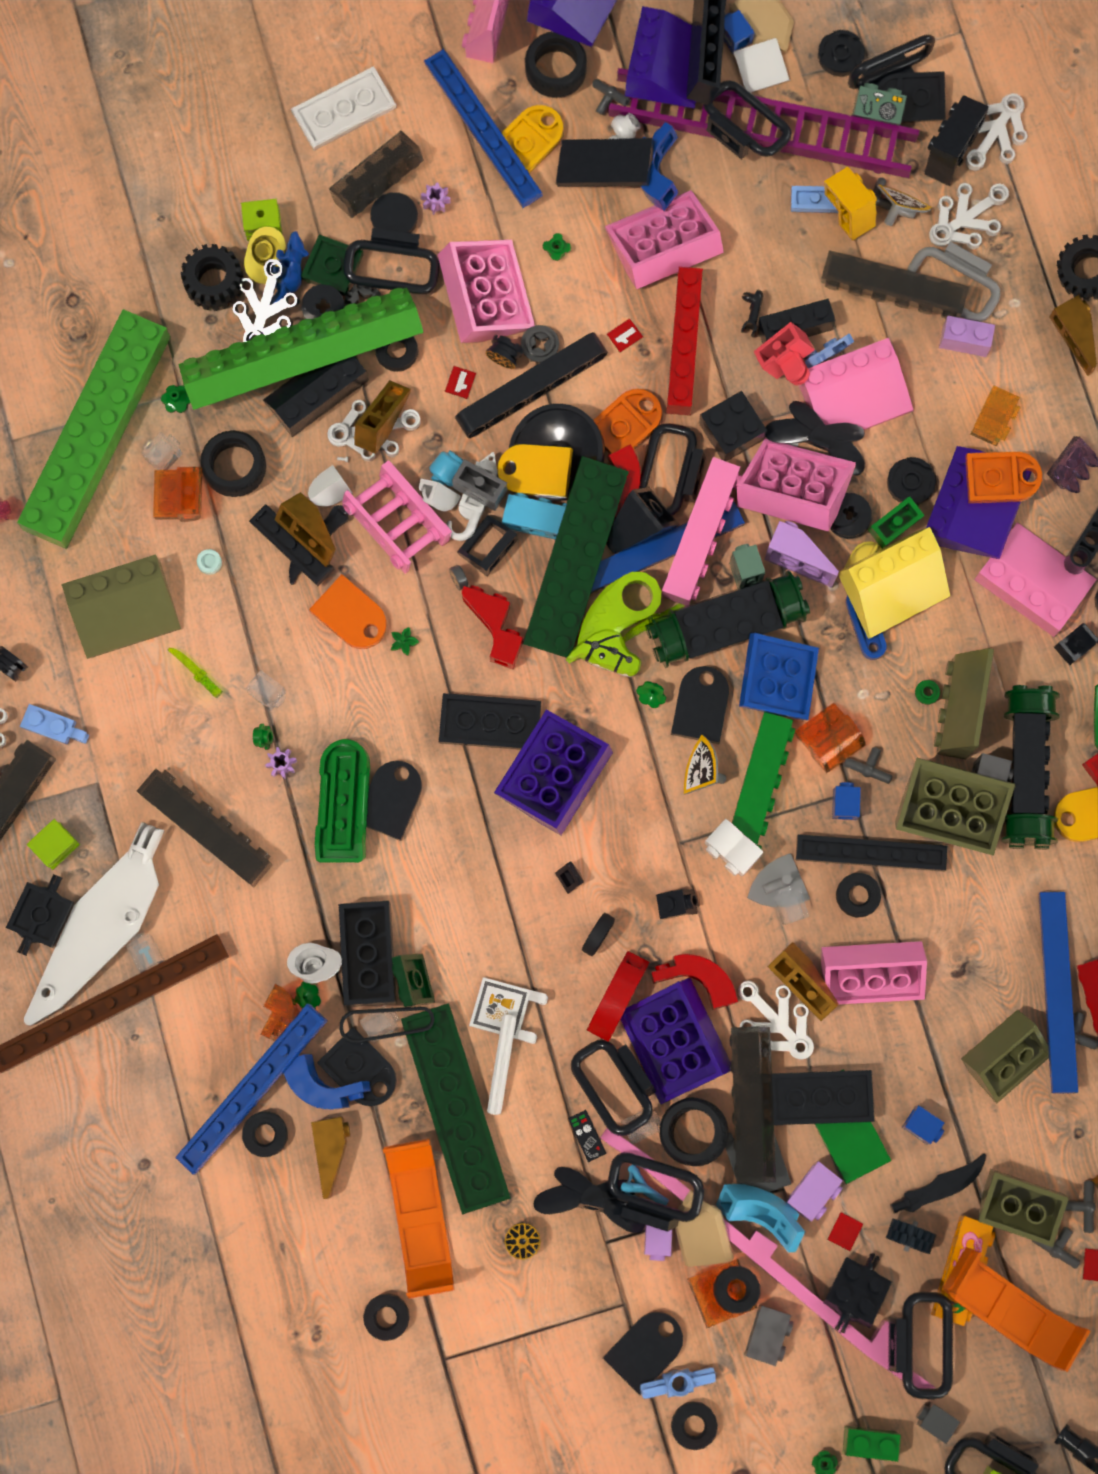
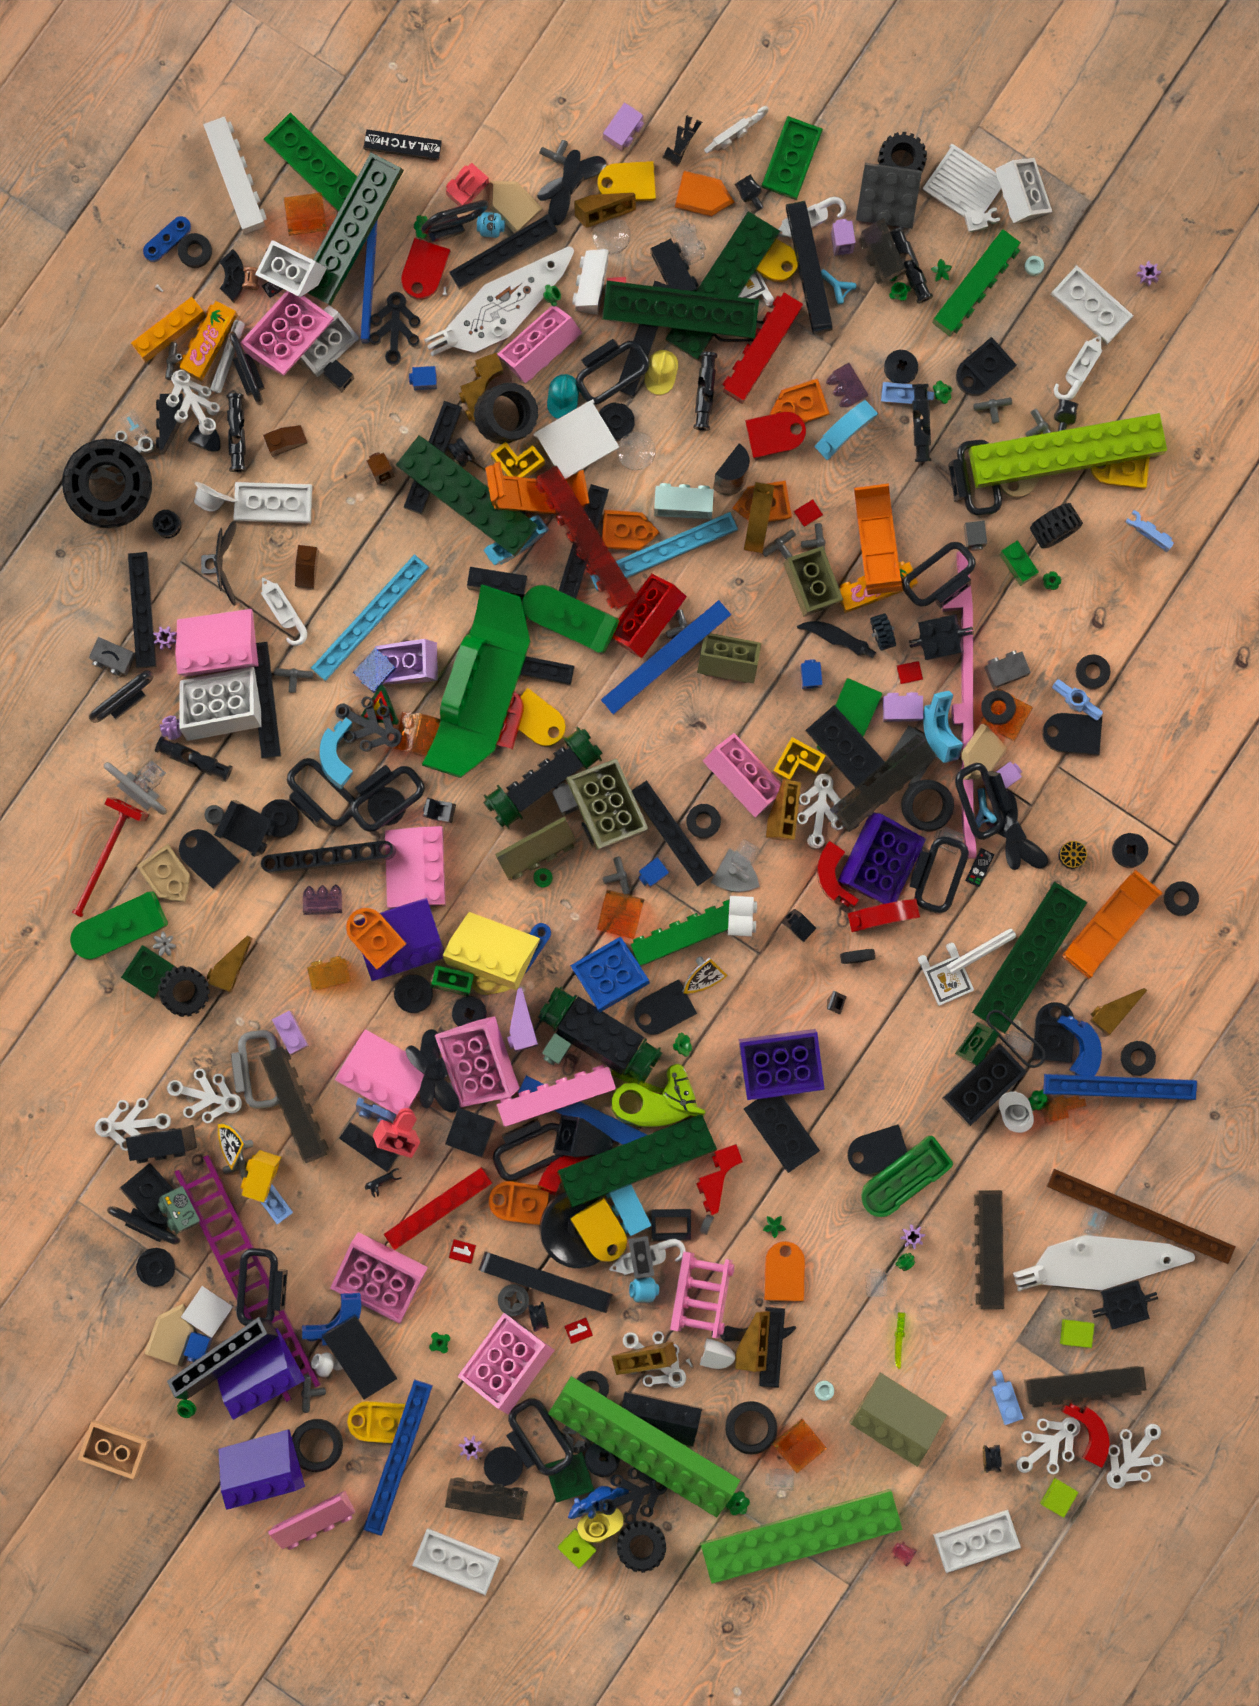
camera: 130 degrees left, 5 degrees up
(438, 495) = (667, 1280): white brick -> none
(488, 1314) = (1130, 860): none -> black piece
(853, 1037) = (797, 755): none -> yellow brick

